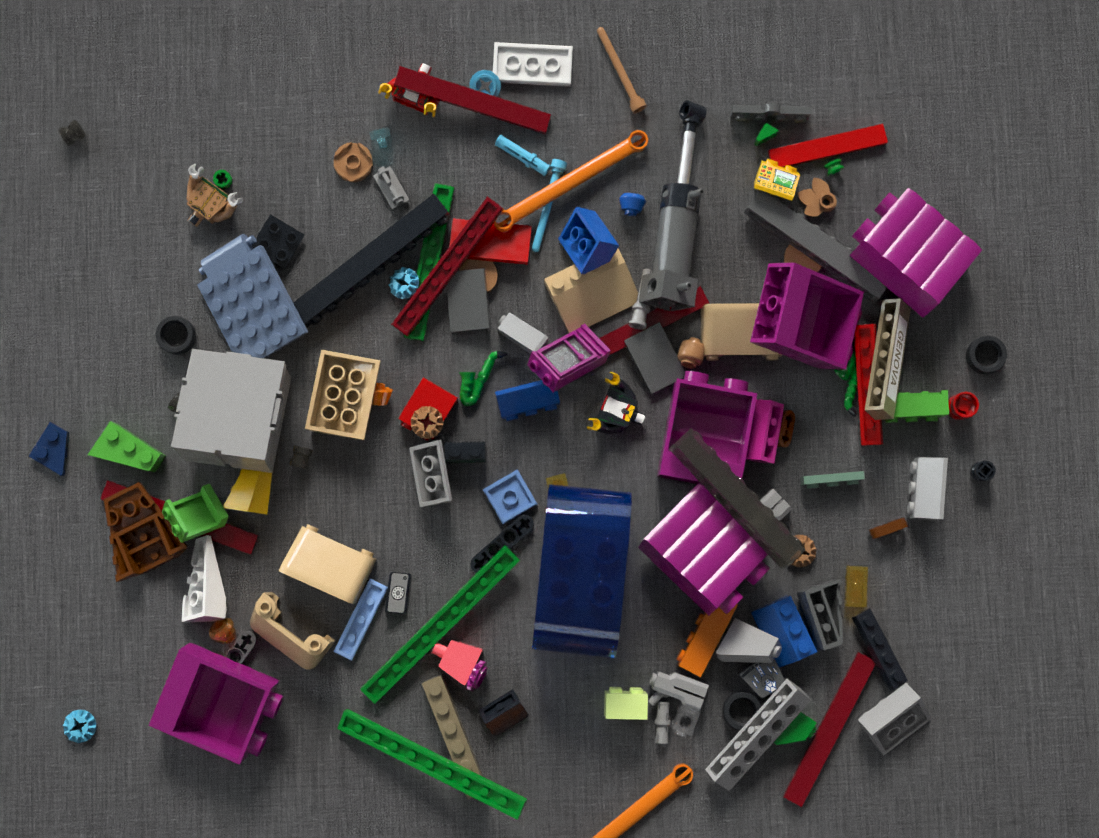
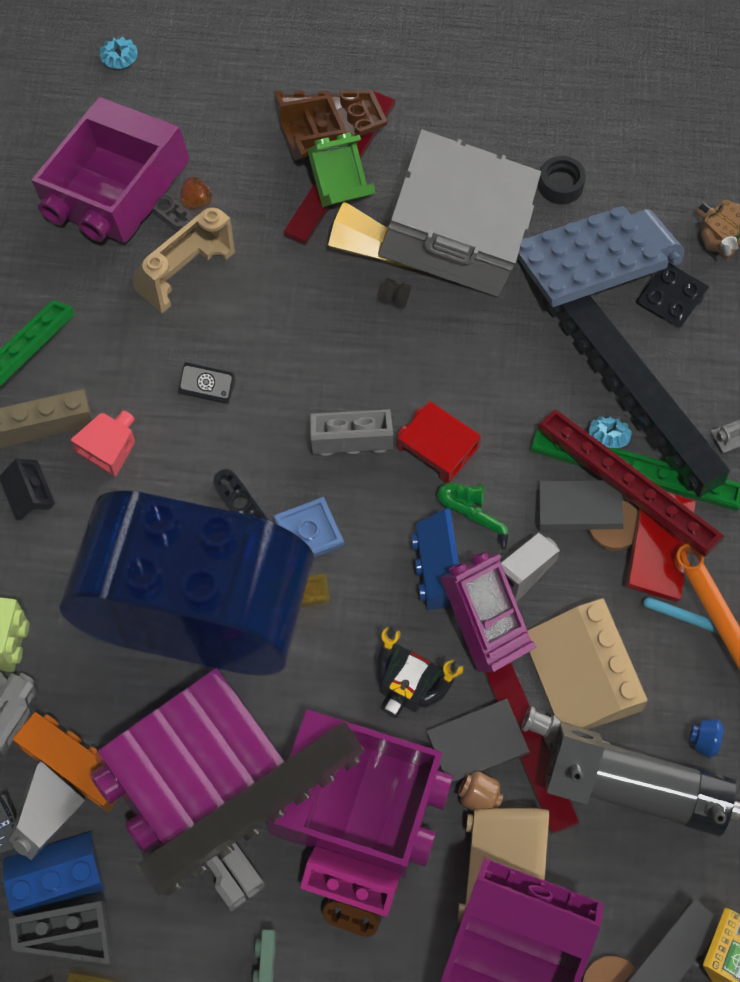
camera: 100 degrees right, 20 degrees down
(52, 448) = (439, 53): dark blue wing -> none
(126, 448) = (433, 110): bright green wedge -> none
(206, 593) = (237, 180): white wedge -> none
(328, 565) = (251, 305): tan windscreen -> none
(342, 395) = (468, 337): tan slope -> none
(360, 619) = (180, 340): light blue tile -> none
(381, 394) = (464, 385): orange piece -> none
(431, 430) = (427, 439): medium nougat gear -> none
(439, 624) = (155, 422): green plate -> none
(465, 452) = (375, 478): black brick -> none
(477, 675) = (80, 458): magenta gear -> none
(587, 240) = (655, 662): blue slope -> none
(809, 545) = (168, 931): medium nougat gear -> none

